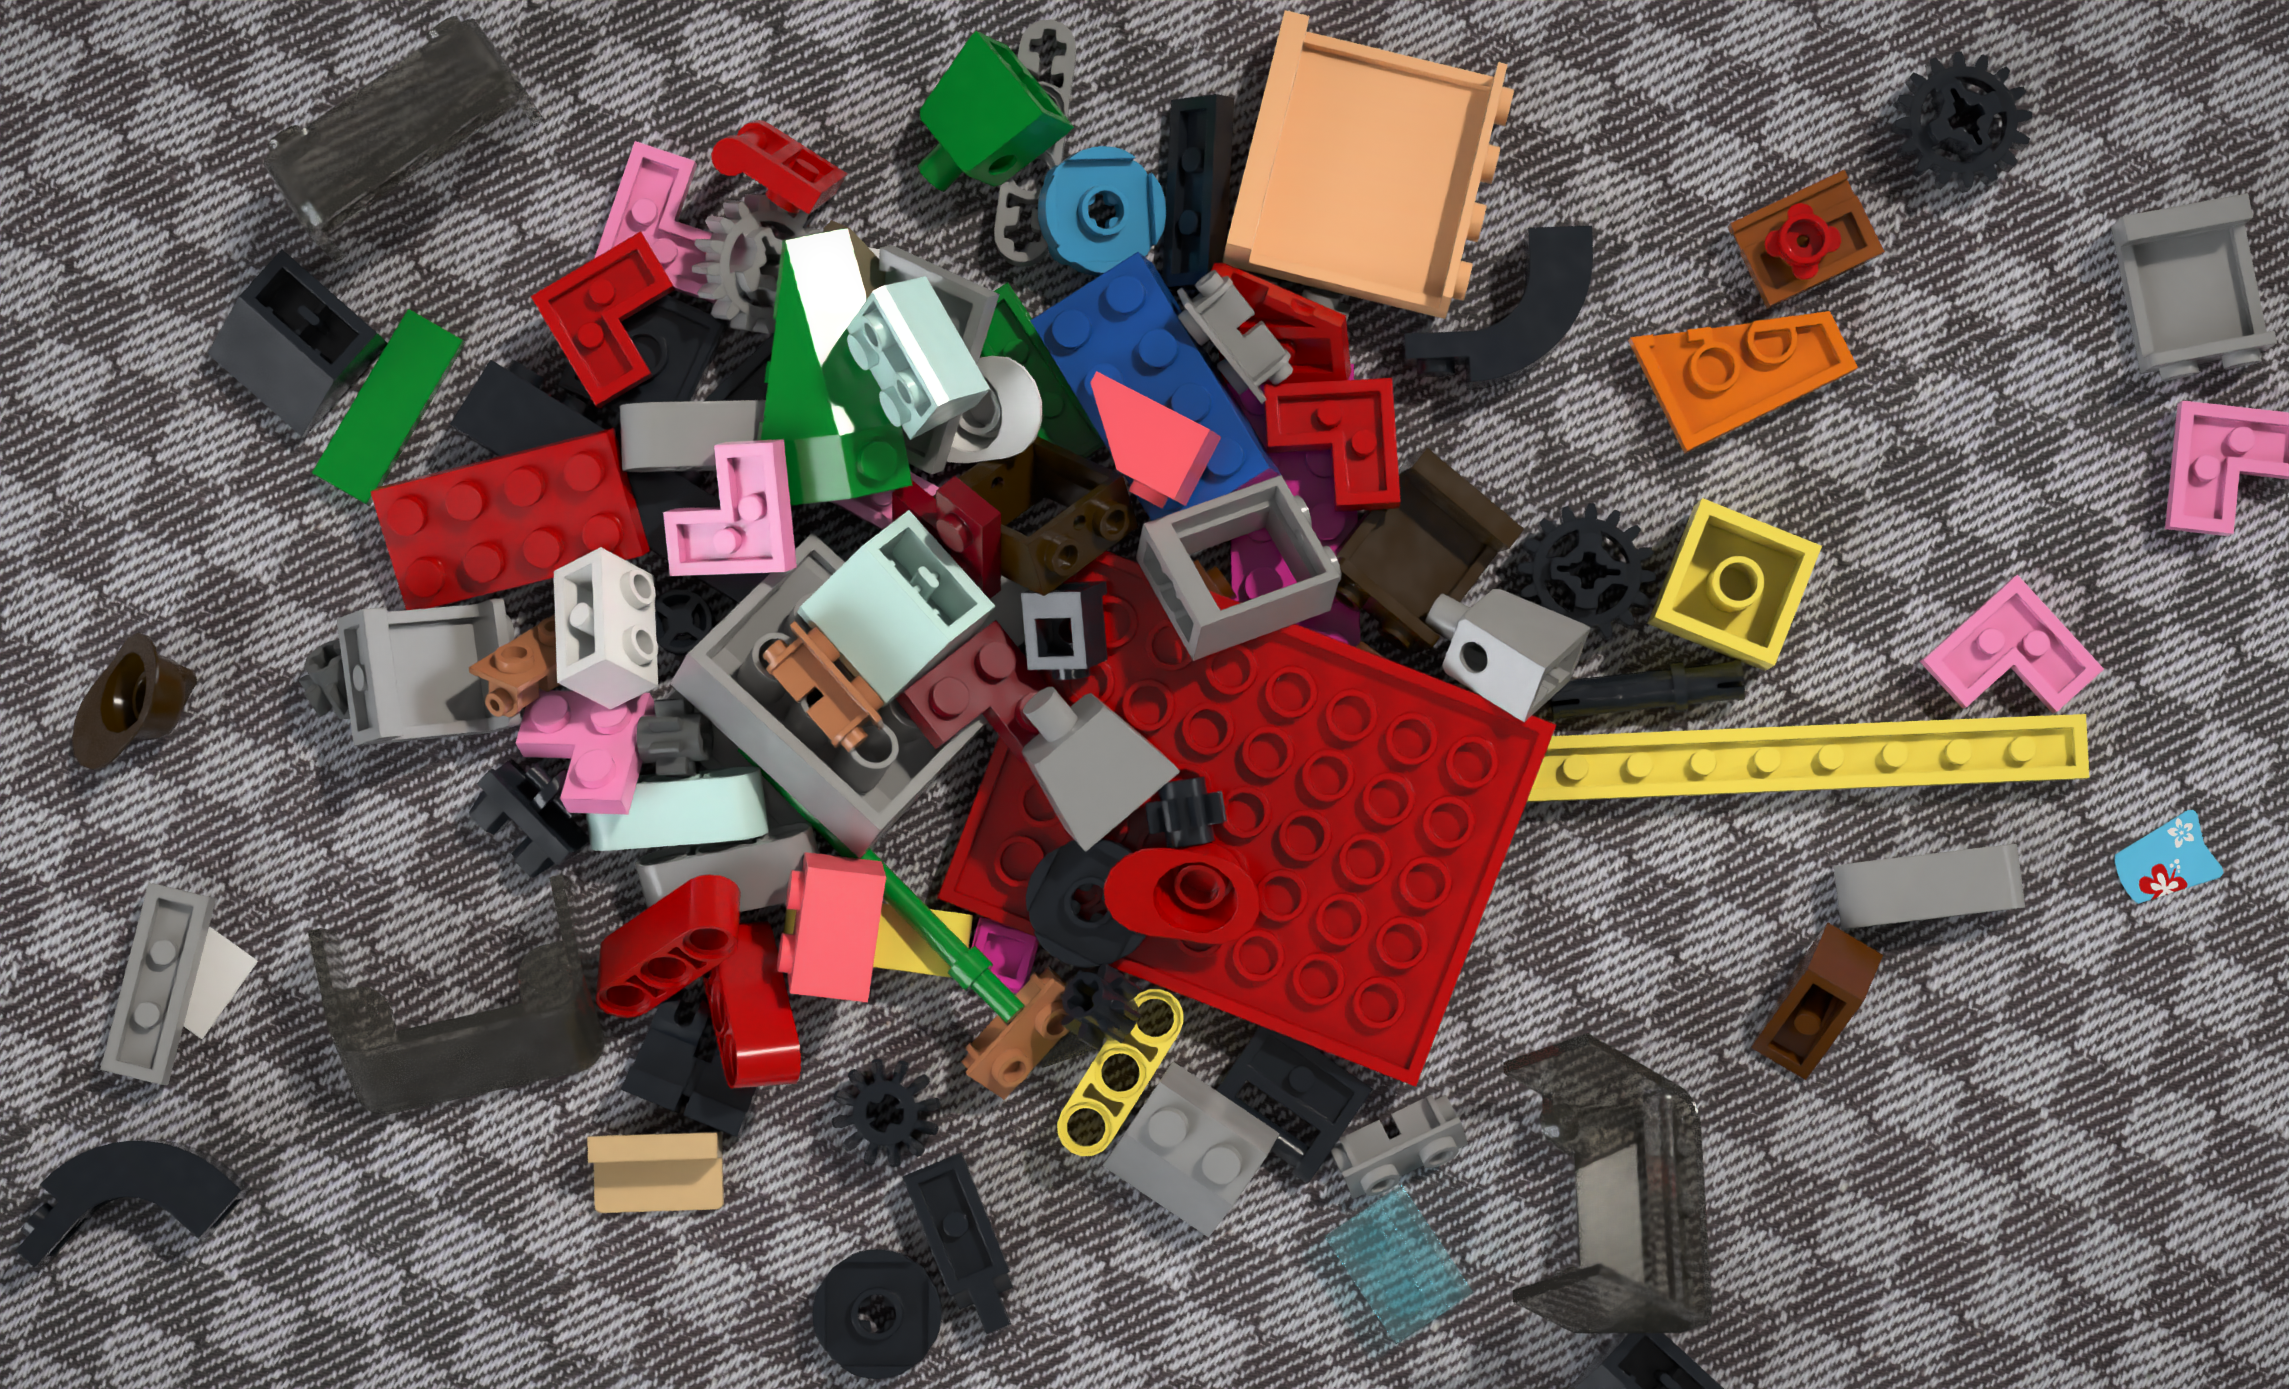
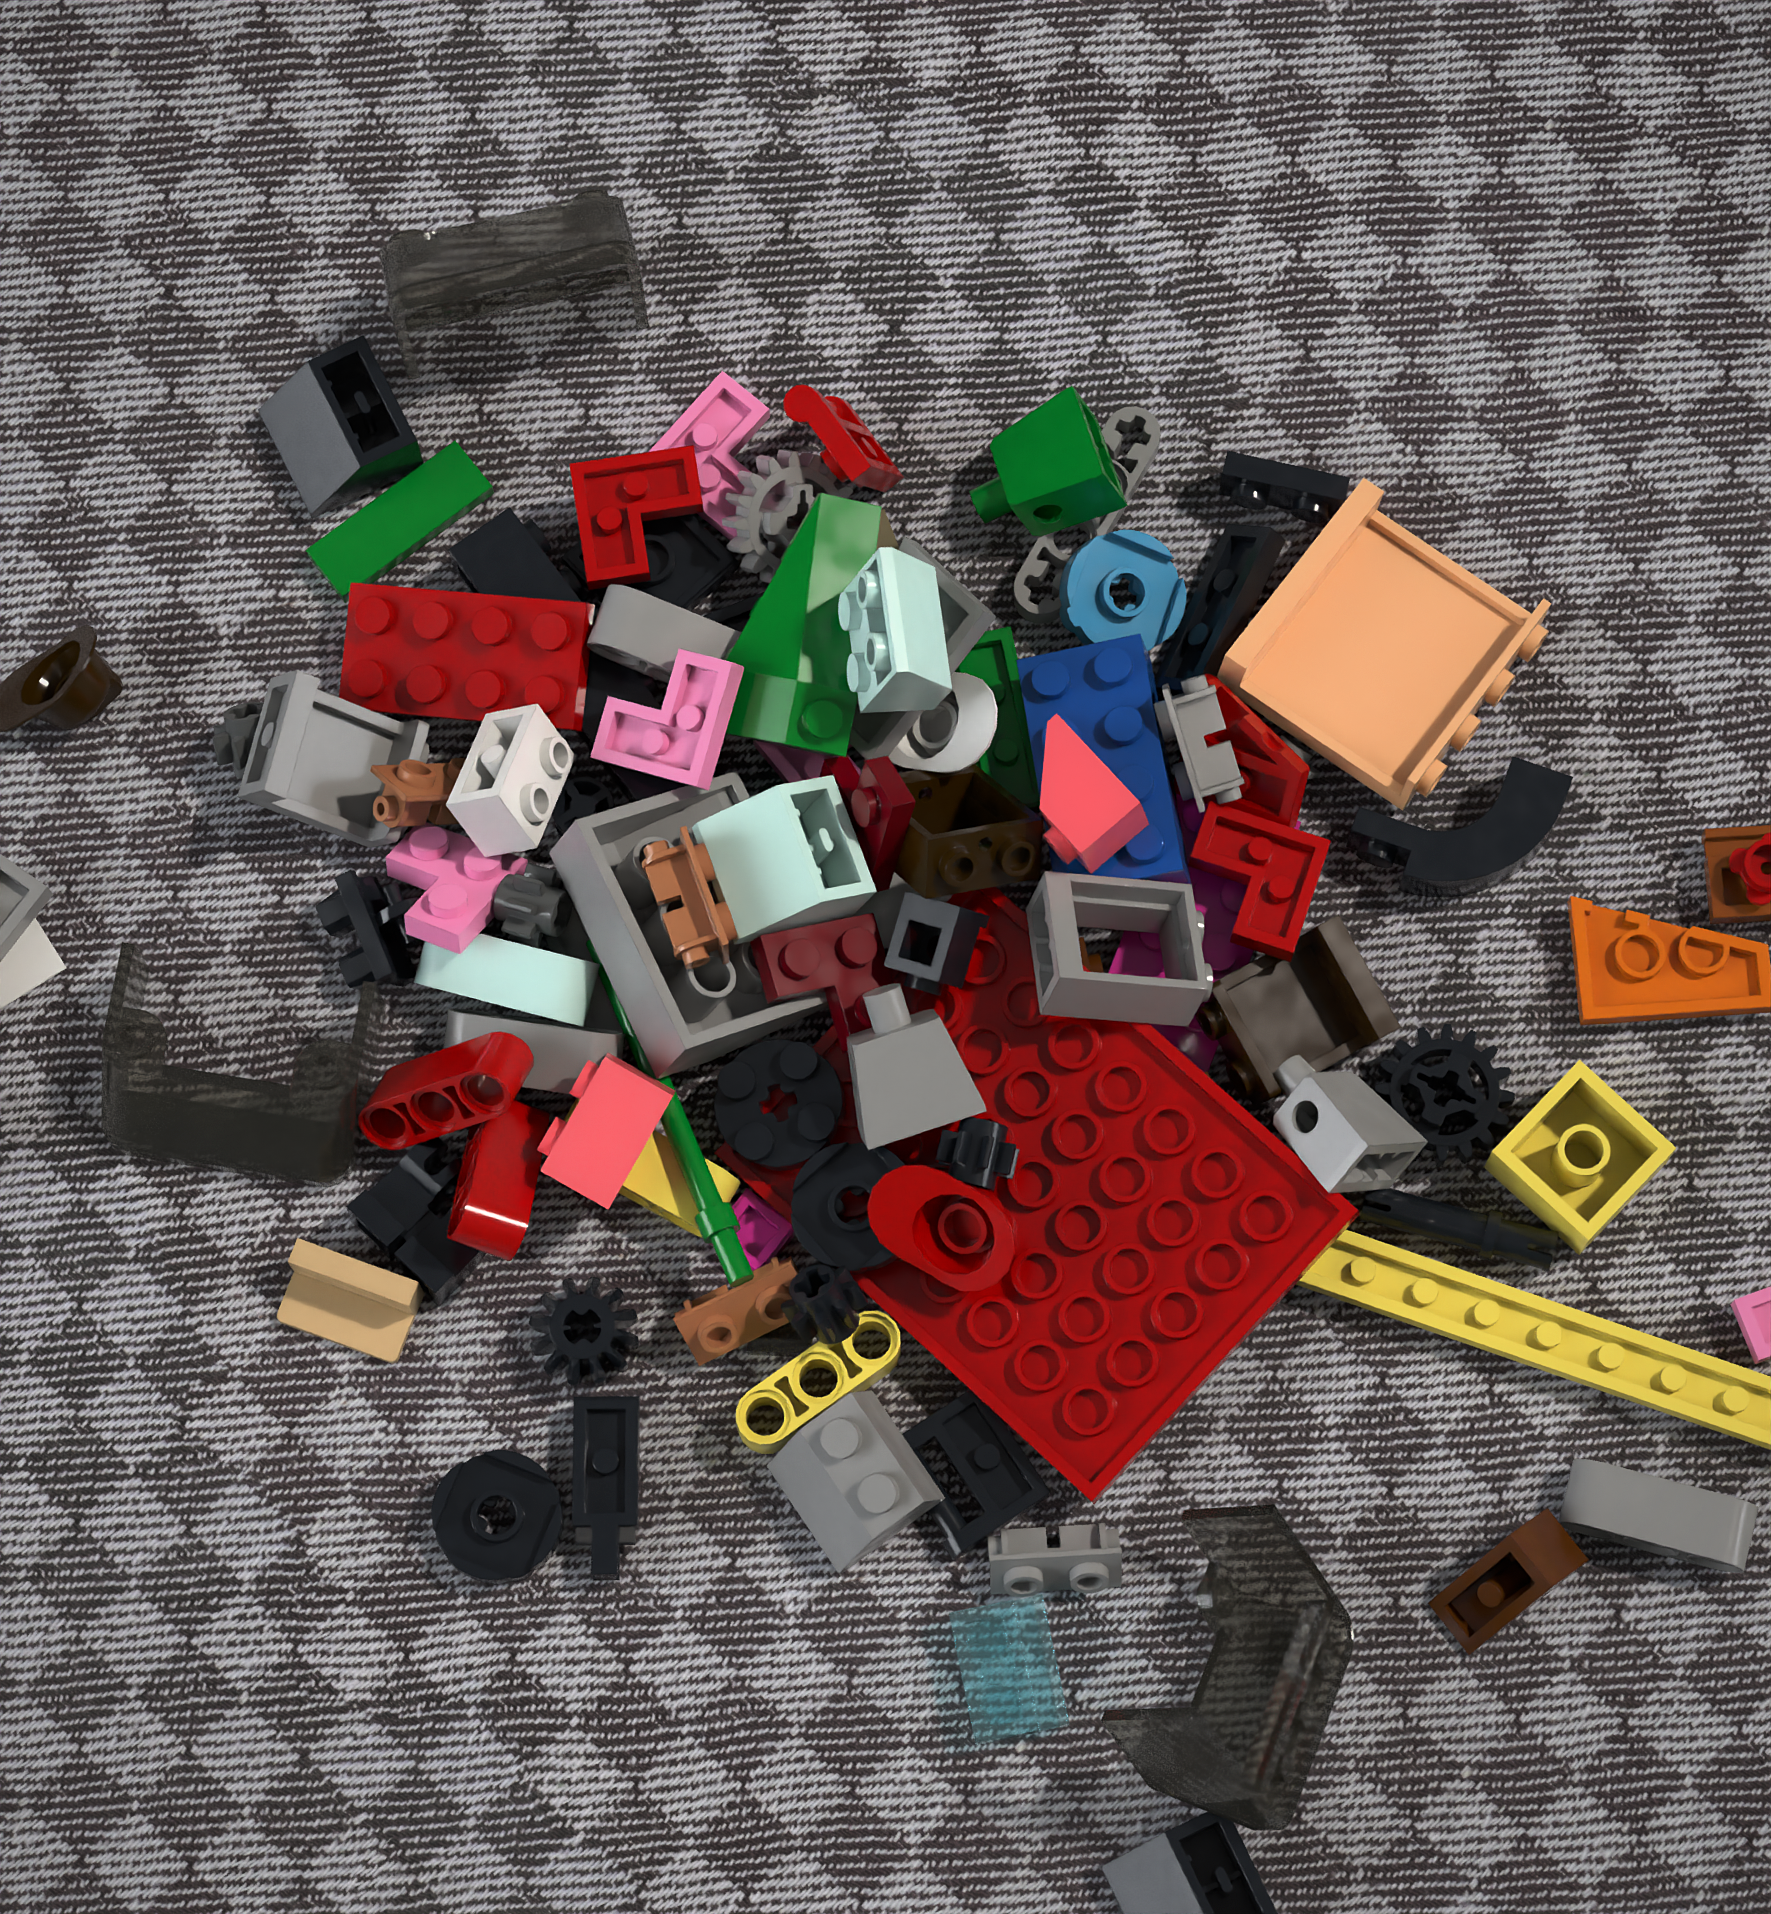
camera: 25 degrees right, 10 degrees down
(943, 829) = (747, 1085): none -> black plate
(1237, 42) = (1263, 482): none -> black plate

